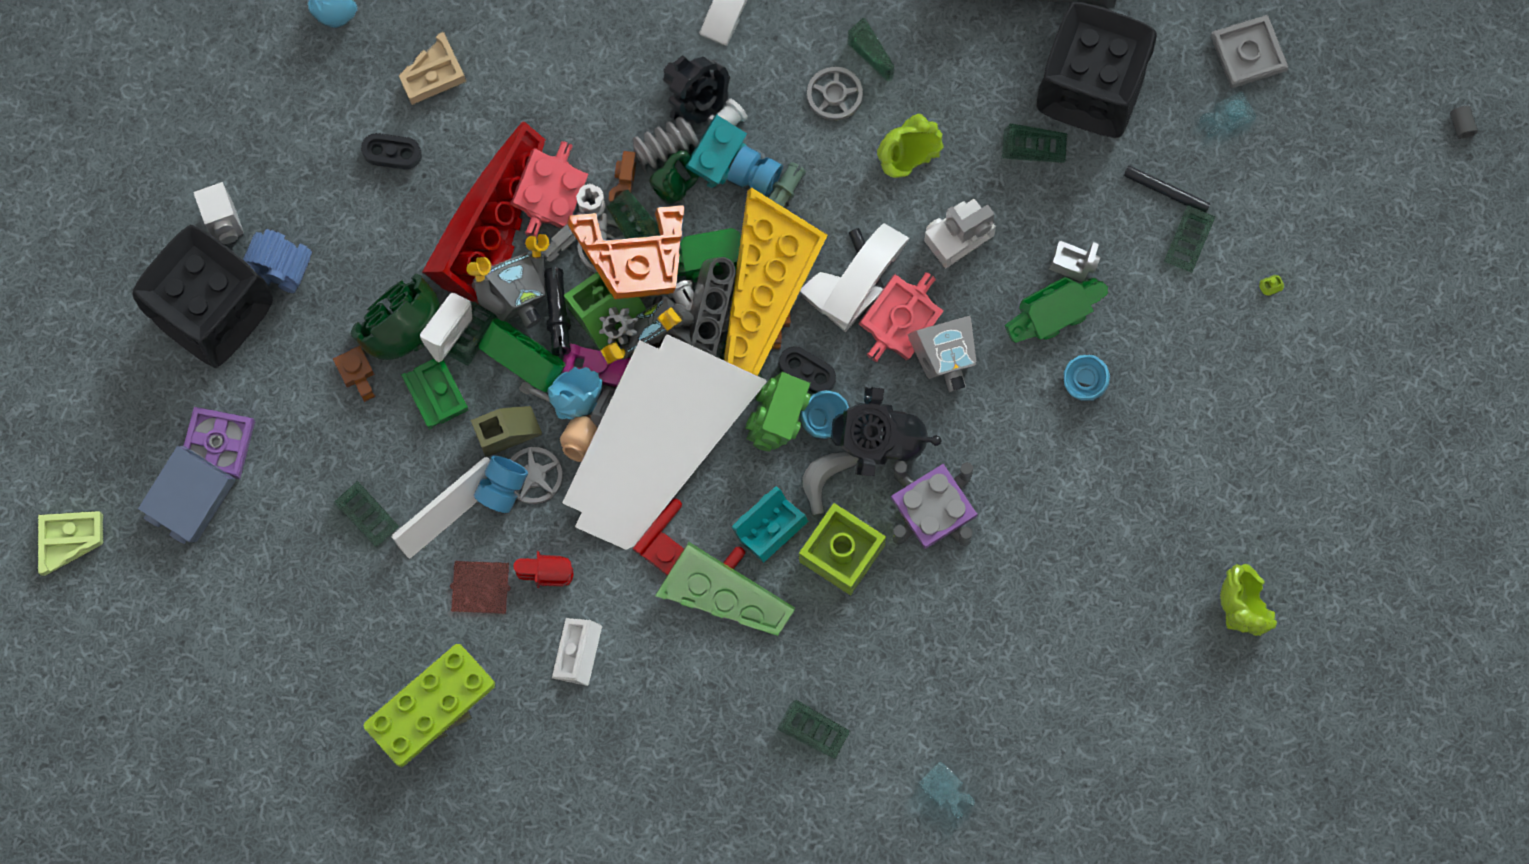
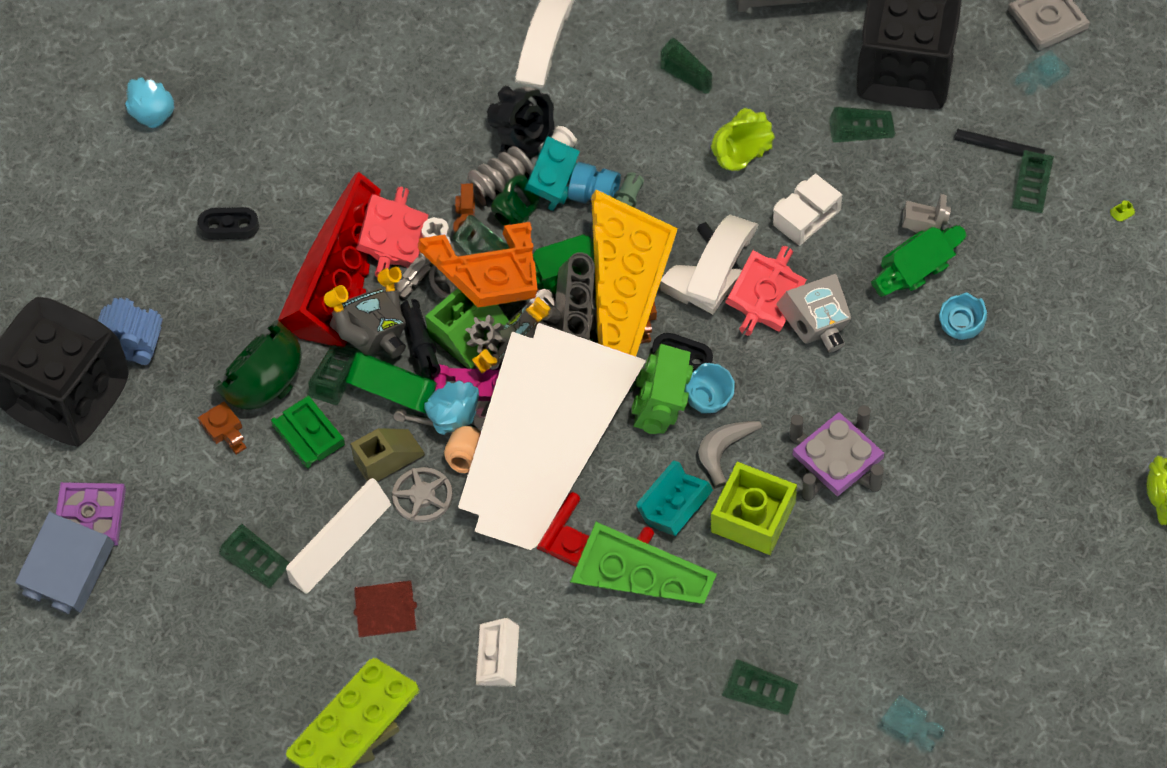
camera: 10 degrees left, 15 degrees down
(219, 213) = (59, 286): white brick -> none
(432, 72) = (258, 149): tan wing -> none
(447, 326) = (311, 362): white slope -> none
(499, 487) = (391, 502): dark azure wheel -> none
(545, 570) = (449, 578): red arm -> none
(834, 93) = (657, 111): light grey wheel -> none
(860, 431) = (751, 396): black helmet -> none
(975, 224) = (817, 194): light grey bracket -> none

